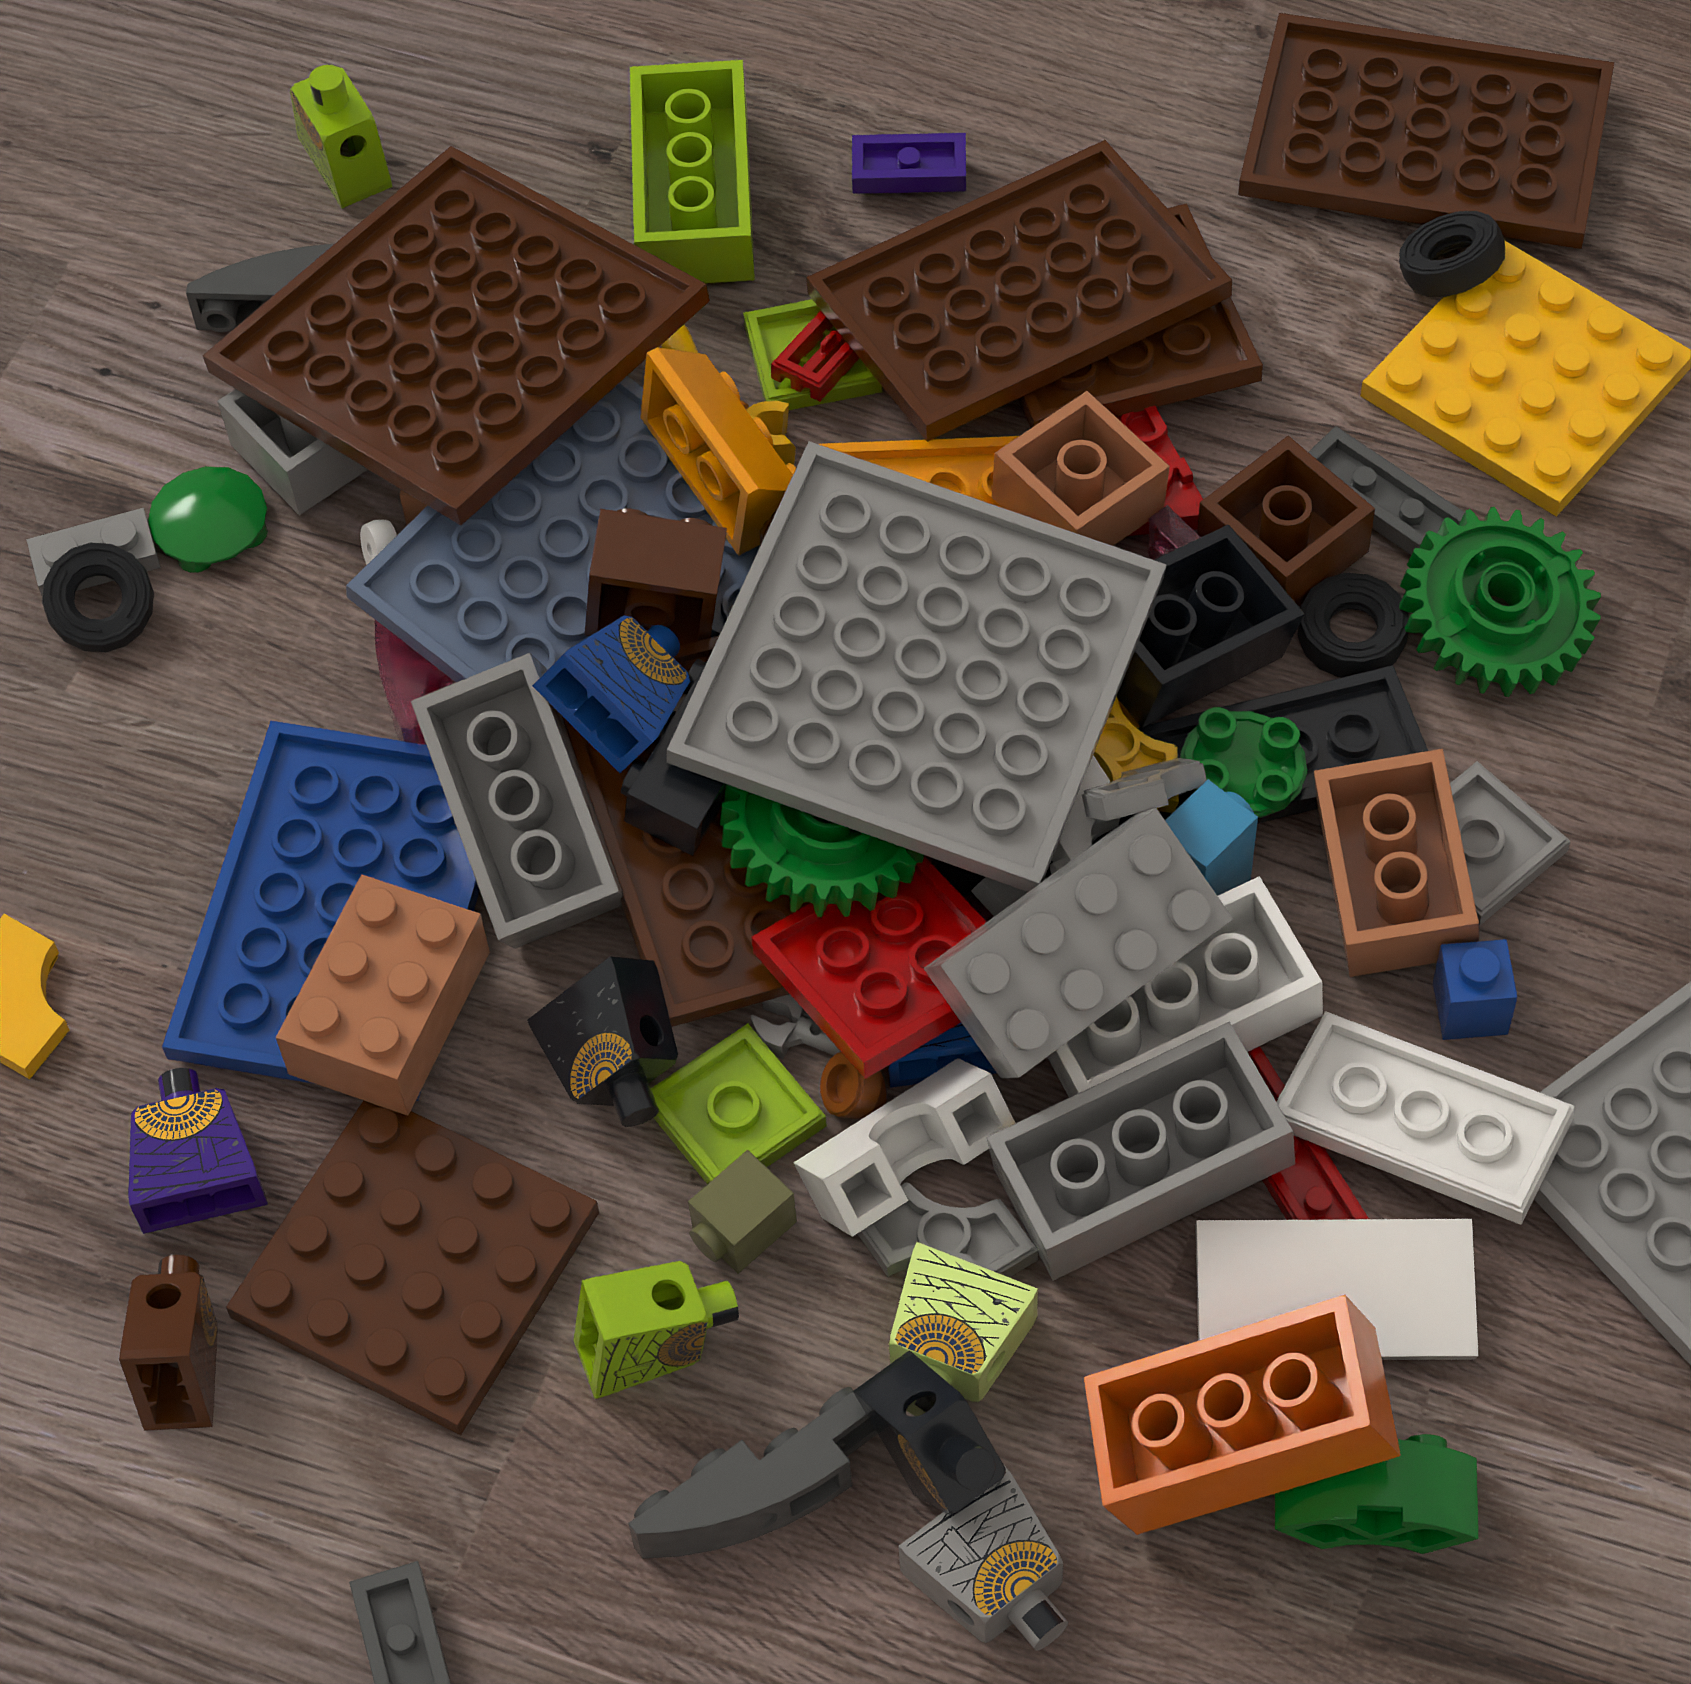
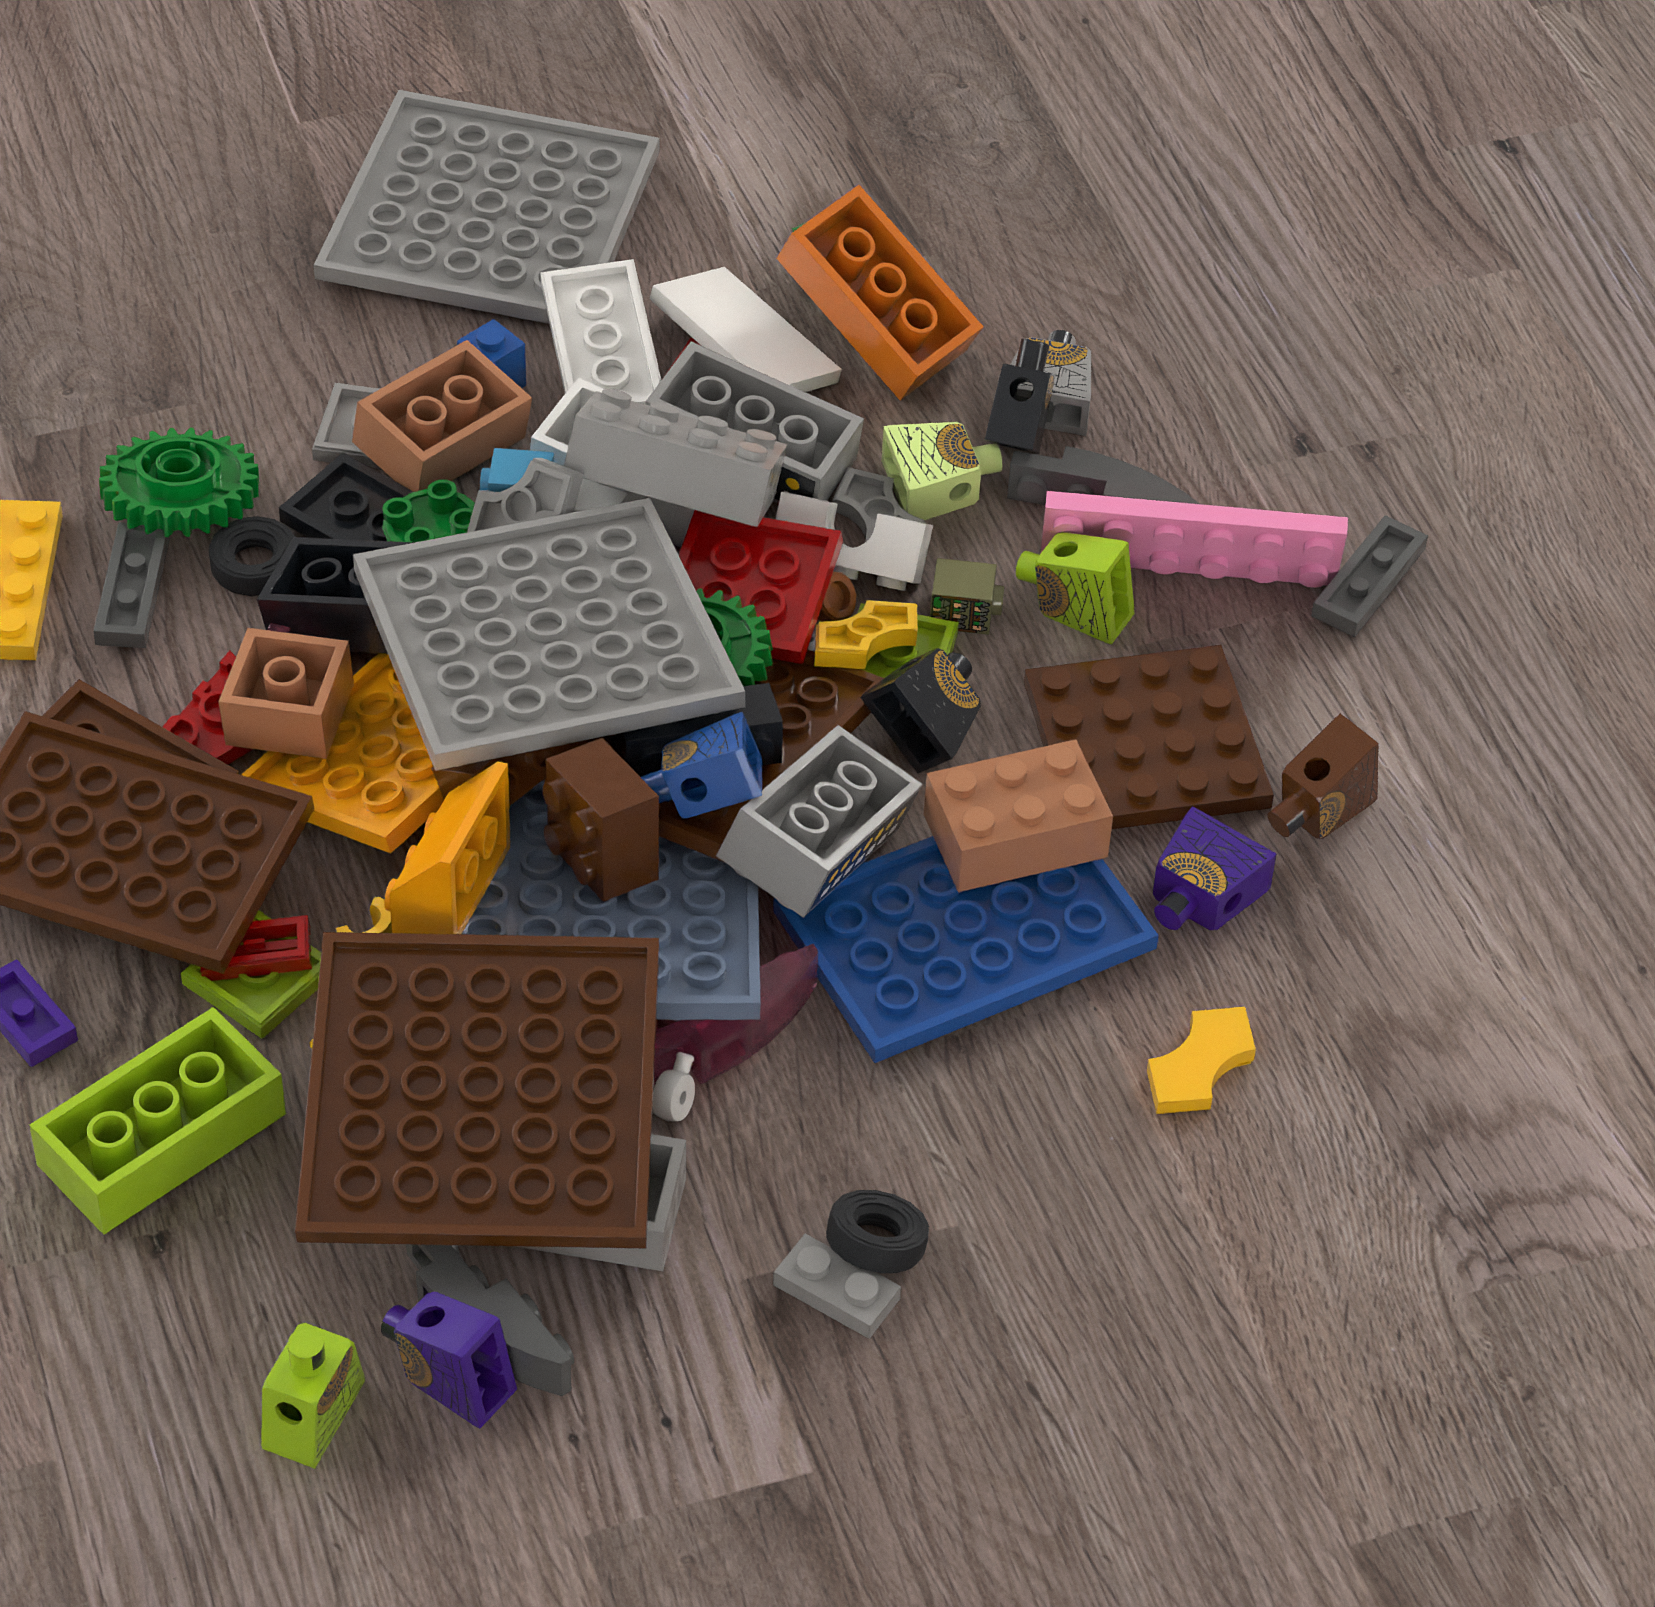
camera: 135 degrees left, 10 degrees down
(208, 517) = (739, 1235): green dish -> none
(277, 216) = (453, 1355): none -> dark purple torso
(591, 1480) = (1206, 537): none -> bright pink plate
(753, 1082) = (859, 637): none -> yellow tile
(1292, 517) = (208, 600): reddish brown brick -> none

